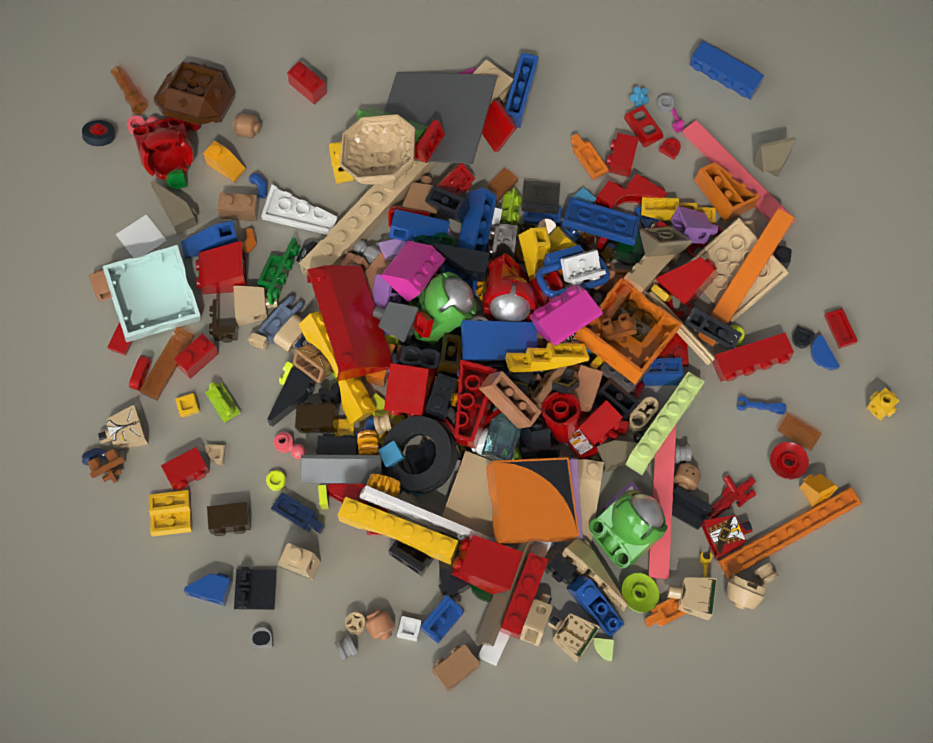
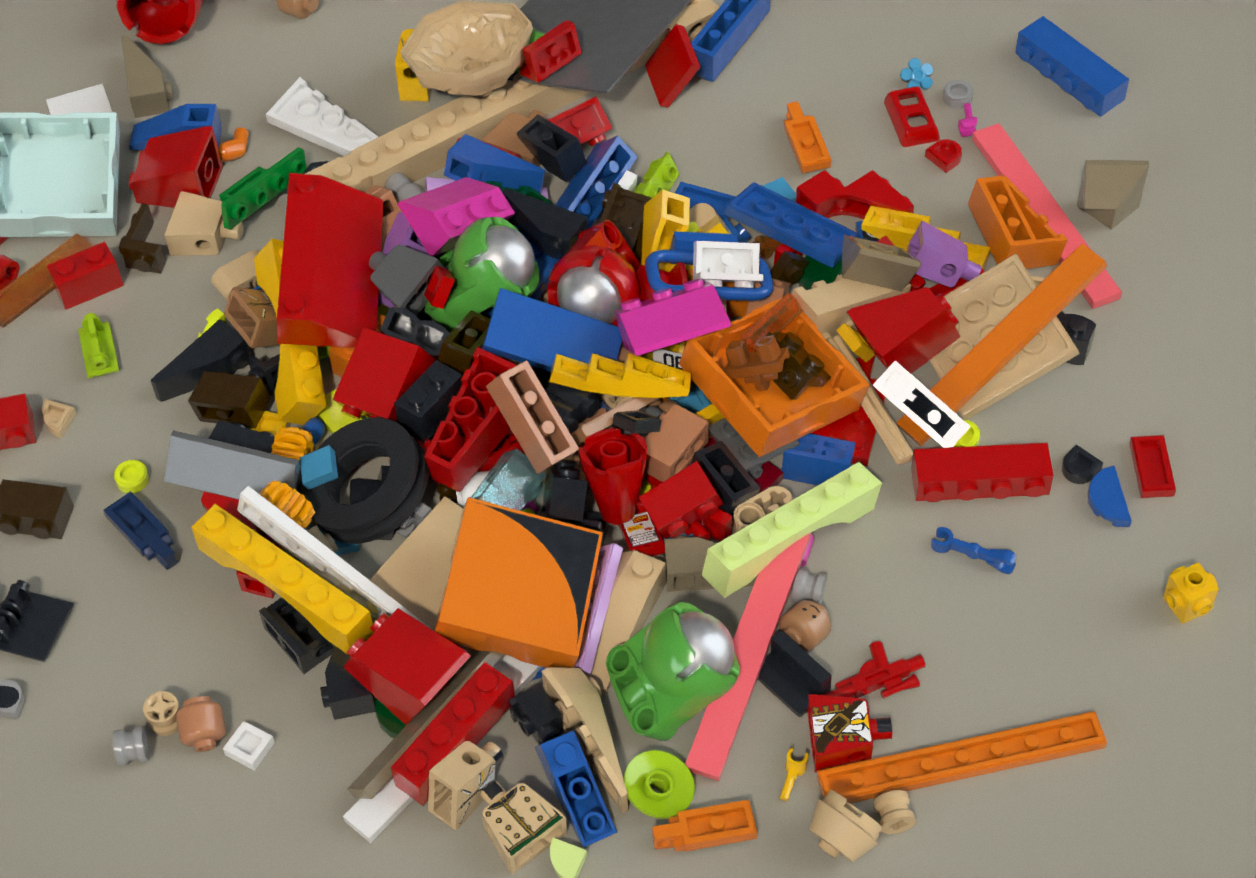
camera: 20 degrees right, 15 degrees down
(176, 179) = (163, 45): green tile -> none
(187, 405) = (44, 342): yellow tile -> none
(223, 161) = (242, 35): light orange slope -> none
(238, 206) = (238, 95): medium nougat brick -> none
(257, 179) = (285, 73): blue arm -> none
(258, 341) = (189, 277): tan tile -> none
(279, 318) = (210, 262): sand blue hinge -> none
(296, 449) = (164, 423): coral plate -> none
(298, 561) = (100, 589): tan torso -> none
(323, 497) = (190, 512): neon yellow tile -> none
(383, 423) = (325, 425): tan wheel -> none
(442, 619) = (306, 742): blue hinge -> none
(455, 667) = (298, 823): medium nougat brick -> none
(502, 183) = (653, 148): clear orange tile -> none
(540, 197) = (708, 176): clear smoke tile -> none
(623, 154) = (862, 144): red brick -> none
(695, 596) = (751, 808): tan torso -> none
(792, 453) = (994, 630): red dish -> none
(799, 432) = (1028, 606): clear orange tile -> none
(817, 489) = (1030, 697): light orange slope -> none

